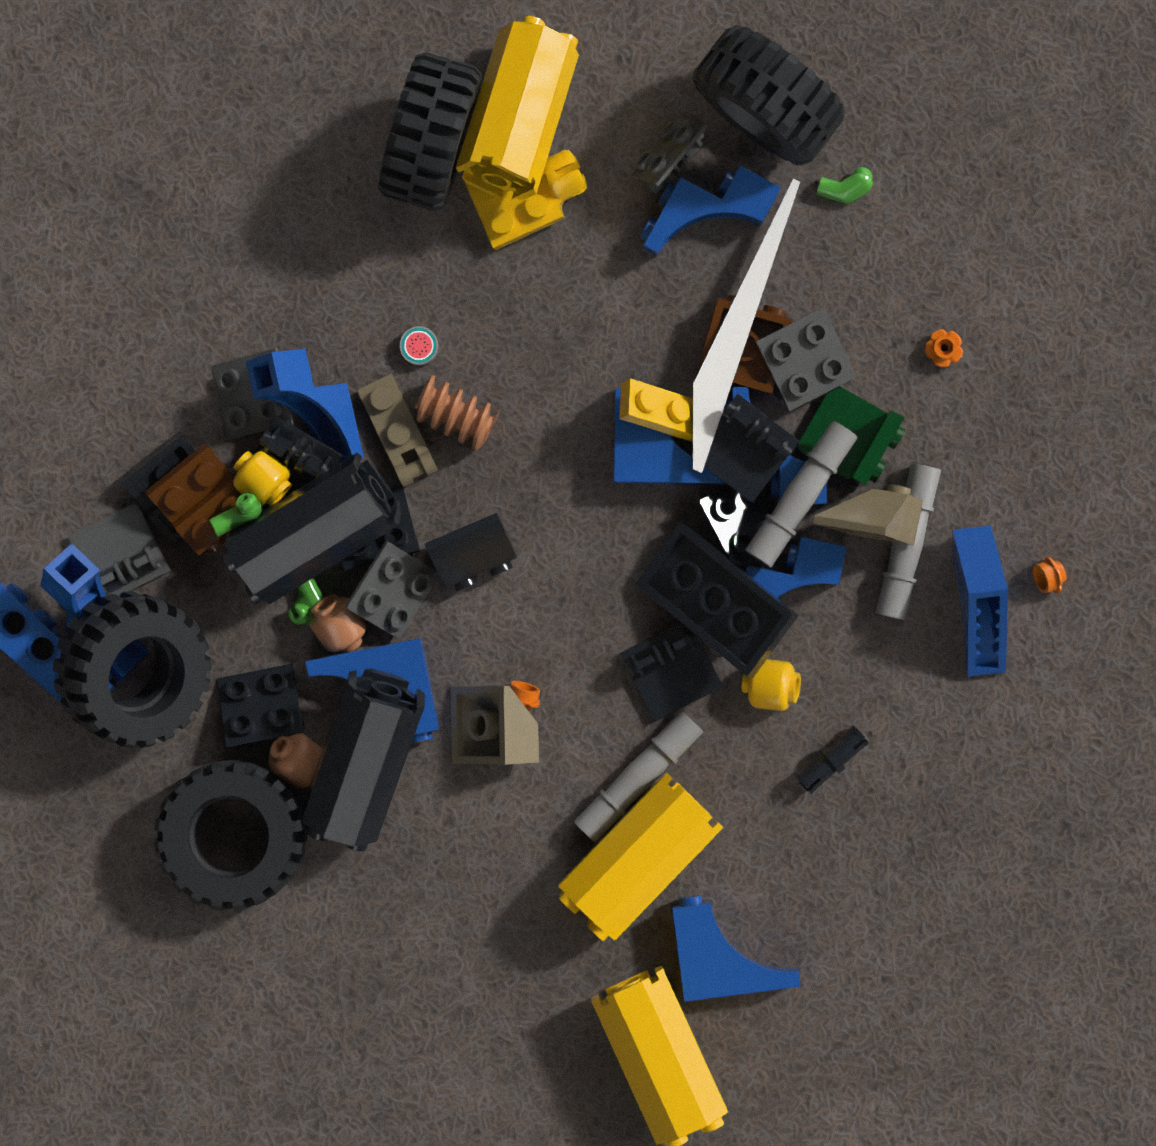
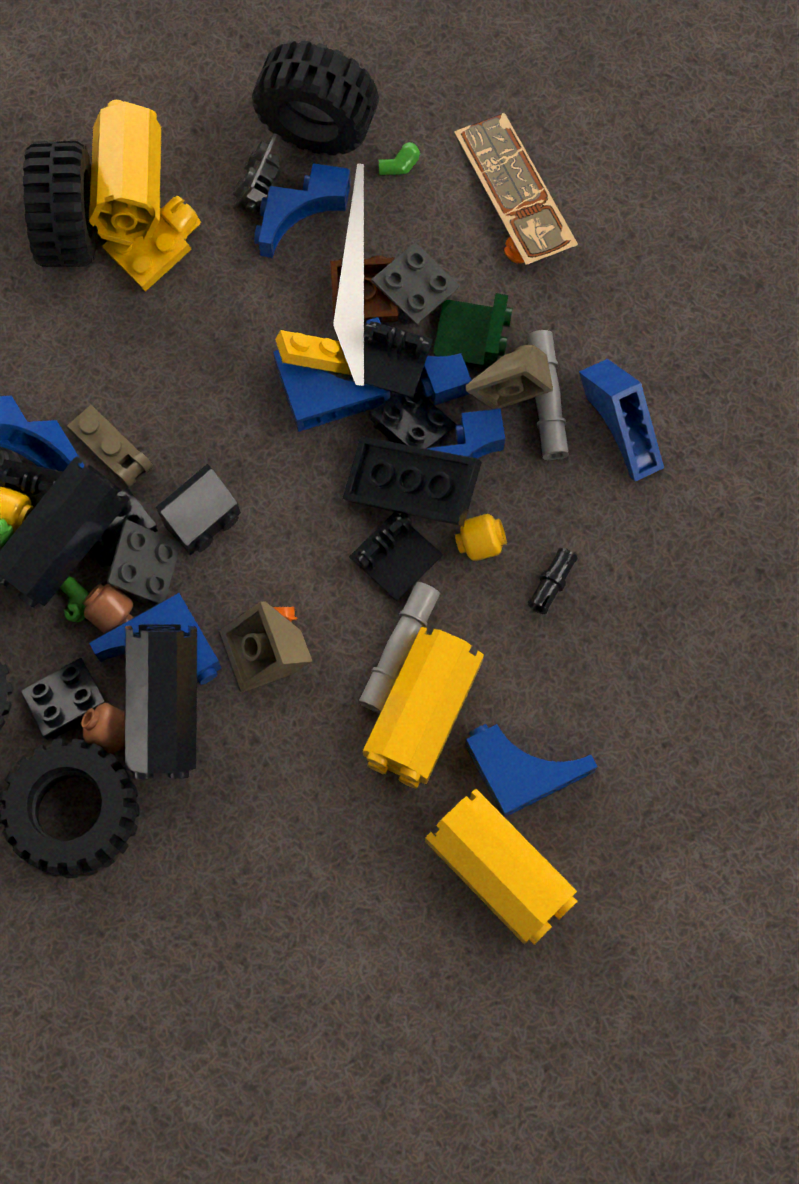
camera: 20 degrees left, 15 degrees down
(419, 346) = (107, 378): tile -> none
(455, 413) = (152, 415): nougat piece -> none
(801, 493) = (449, 377): light grey piece -> none
(967, 270) = (515, 188): none -> sticker
(1049, 575) = (668, 384): orange plate -> none

